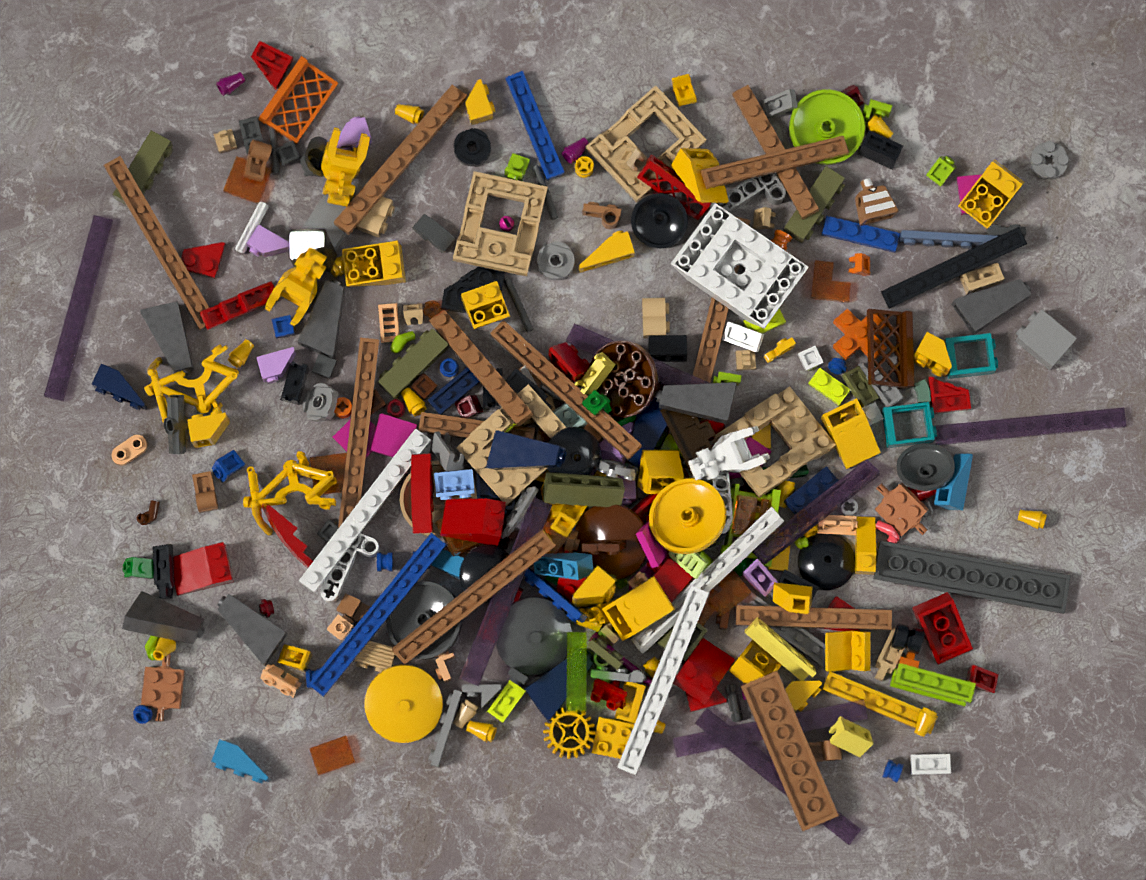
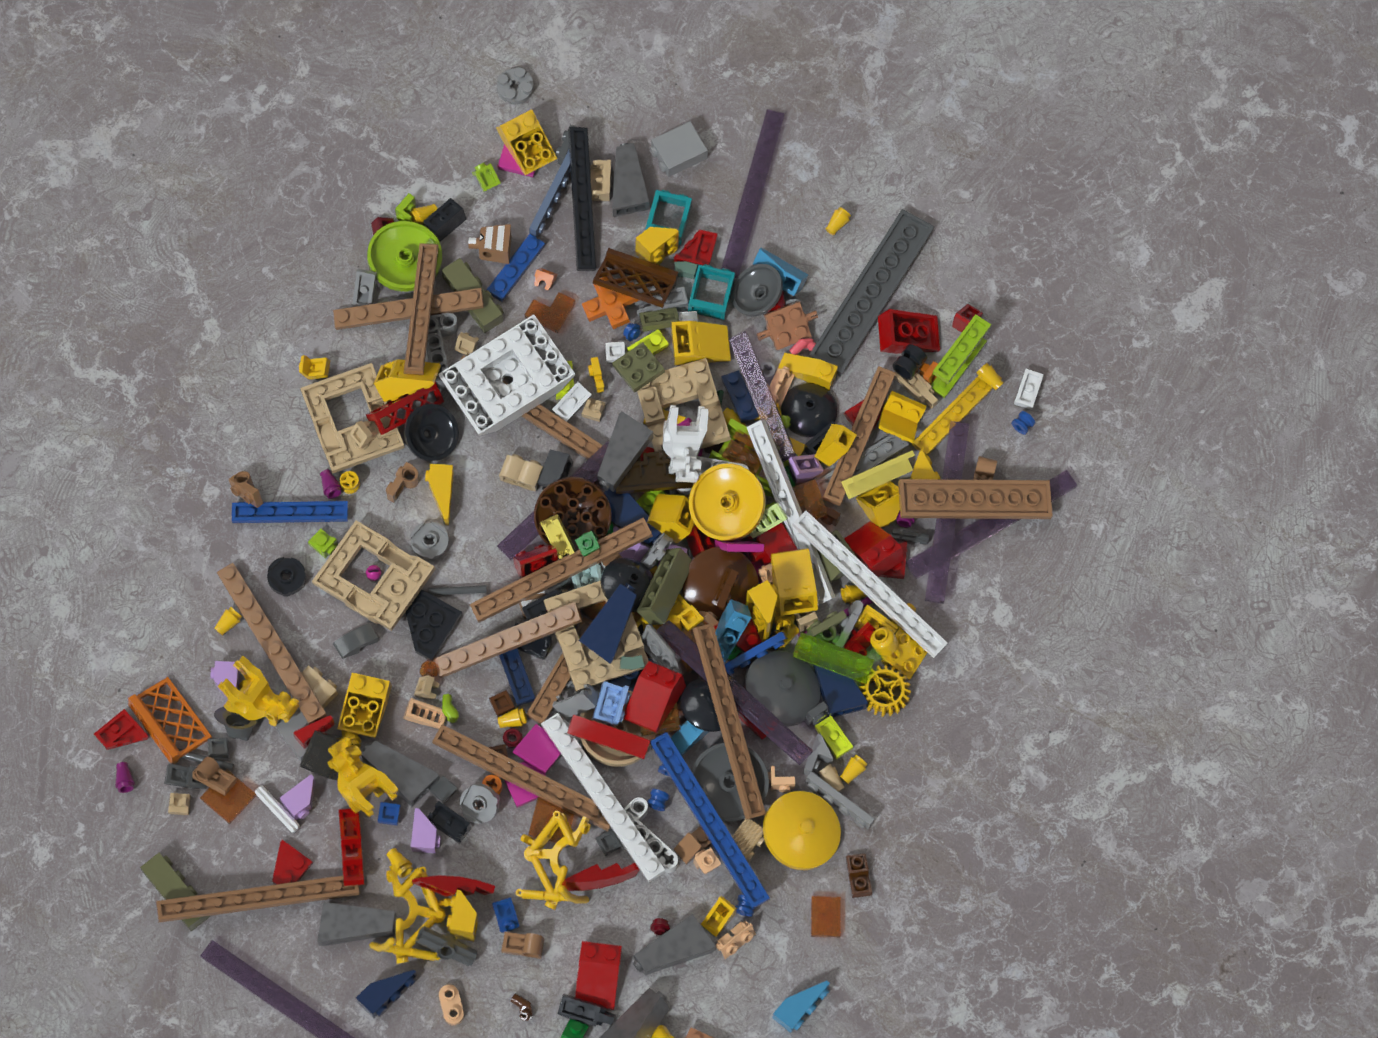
camera: 70 degrees left, 10 degrees down
(230, 404) = (450, 884): none -> red slope
(321, 222) = (304, 734): none -> red slope
(382, 772) = (858, 875): none -> reddish brown slope
(413, 364) = (476, 704): olive brick -> none
(449, 367) = (492, 674): blue plate -> none
(469, 406) = (537, 671): dark red slope -> none
(477, 104) = (247, 554): yellow slope -> none
(485, 305) = (449, 615): yellow slope -> none
(497, 487) = (631, 663): none -> sand green piece
(542, 76) = (243, 486): none -> medium nougat plate
(549, 202) = (346, 526): dark grey bar -> none
(610, 714) = (884, 641): none -> yellow head
(727, 378) = (606, 430): lime bracket -> none
(781, 239) = (491, 333): orange wheel -> none
(800, 385) = (638, 367): none -> olive plate
(850, 737) = (981, 443): light yellow hinge -> none

